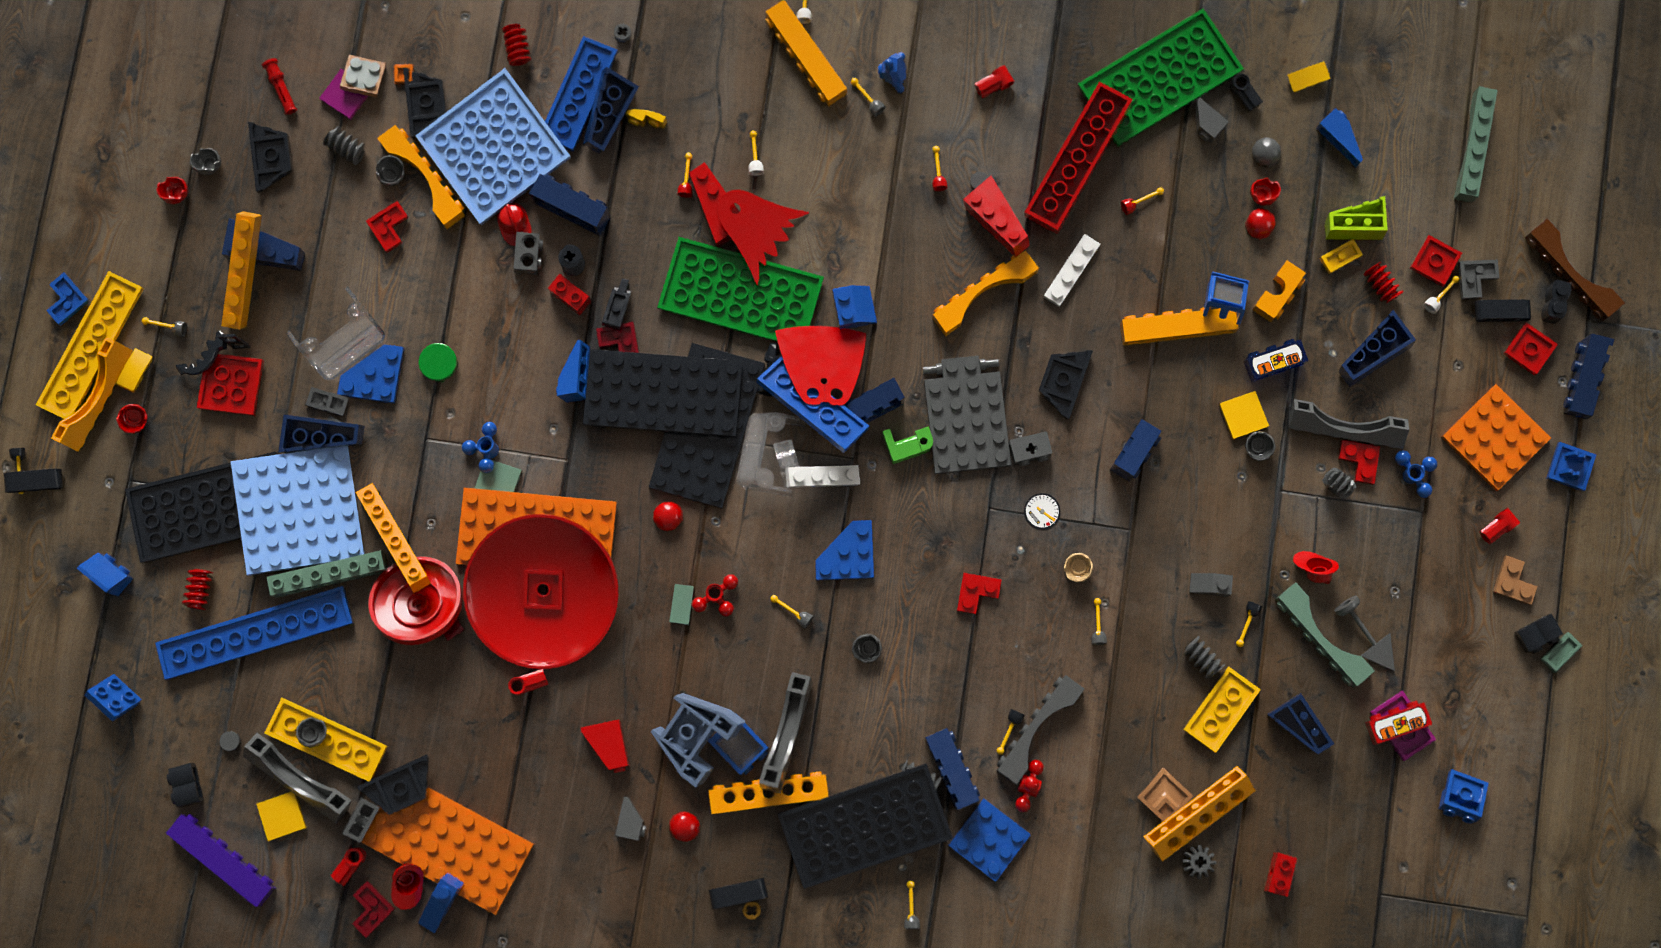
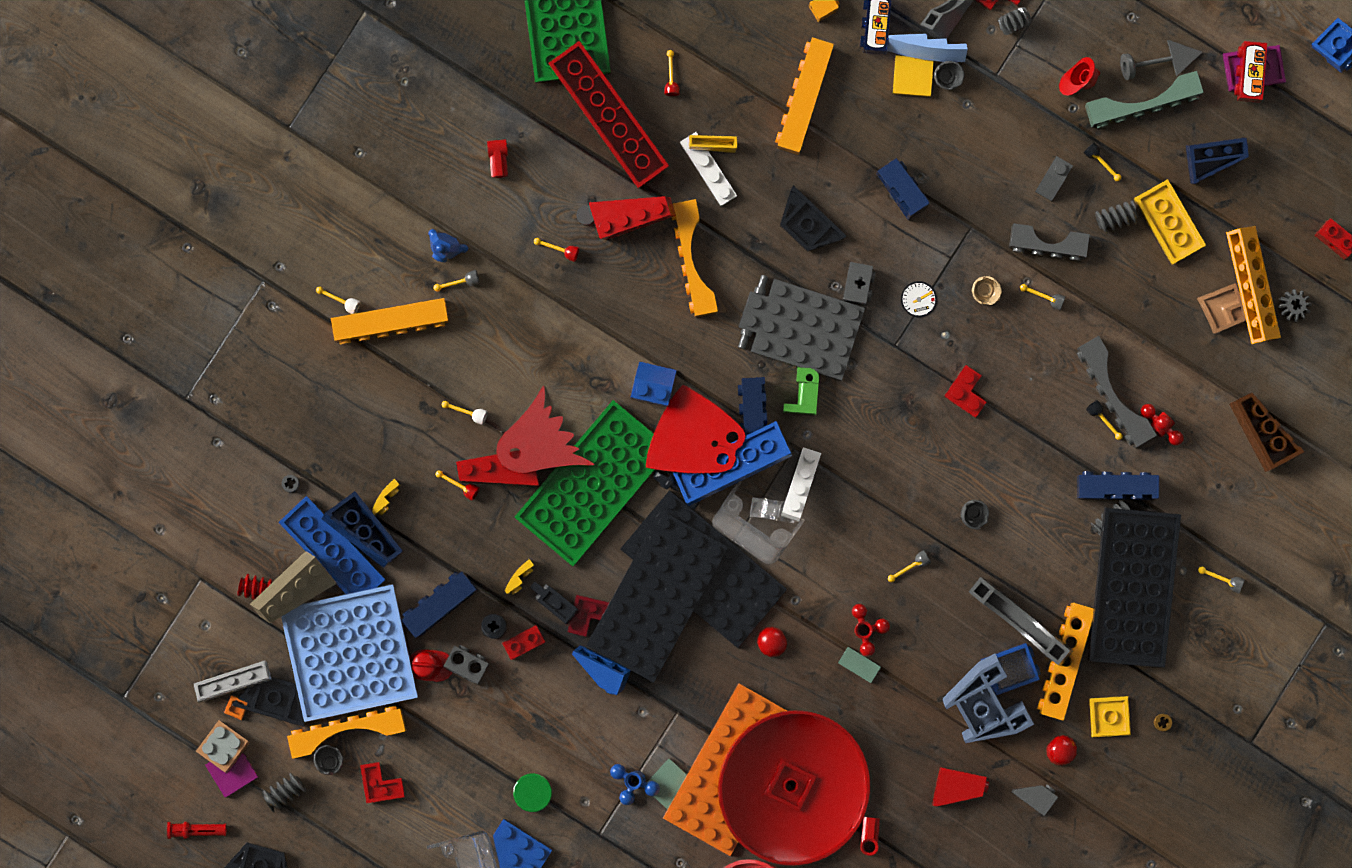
camera: 65 degrees left, 5 degrees up
(424, 59) = (232, 681): none -> light grey tile
(528, 70) = (293, 588): none -> dark tan wedge
(621, 263) = (515, 582): none -> yellow slope
(735, 858) = (1109, 716): none -> yellow tile
(738, 893) = (1143, 728): black beam -> none
(848, 555) = (881, 492): blue plate -> none
(989, 839) = (1193, 482): blue plate -> none
(1065, 885) = (1264, 433): none -> reddish brown wedge
(1096, 262) = (713, 143): none -> yellow piece
(1156, 629) = (1024, 239): none -> dark grey arch
(1226, 293) = (798, 40): blue window -> none
(1273, 409) = (927, 49): none -> light blue slope

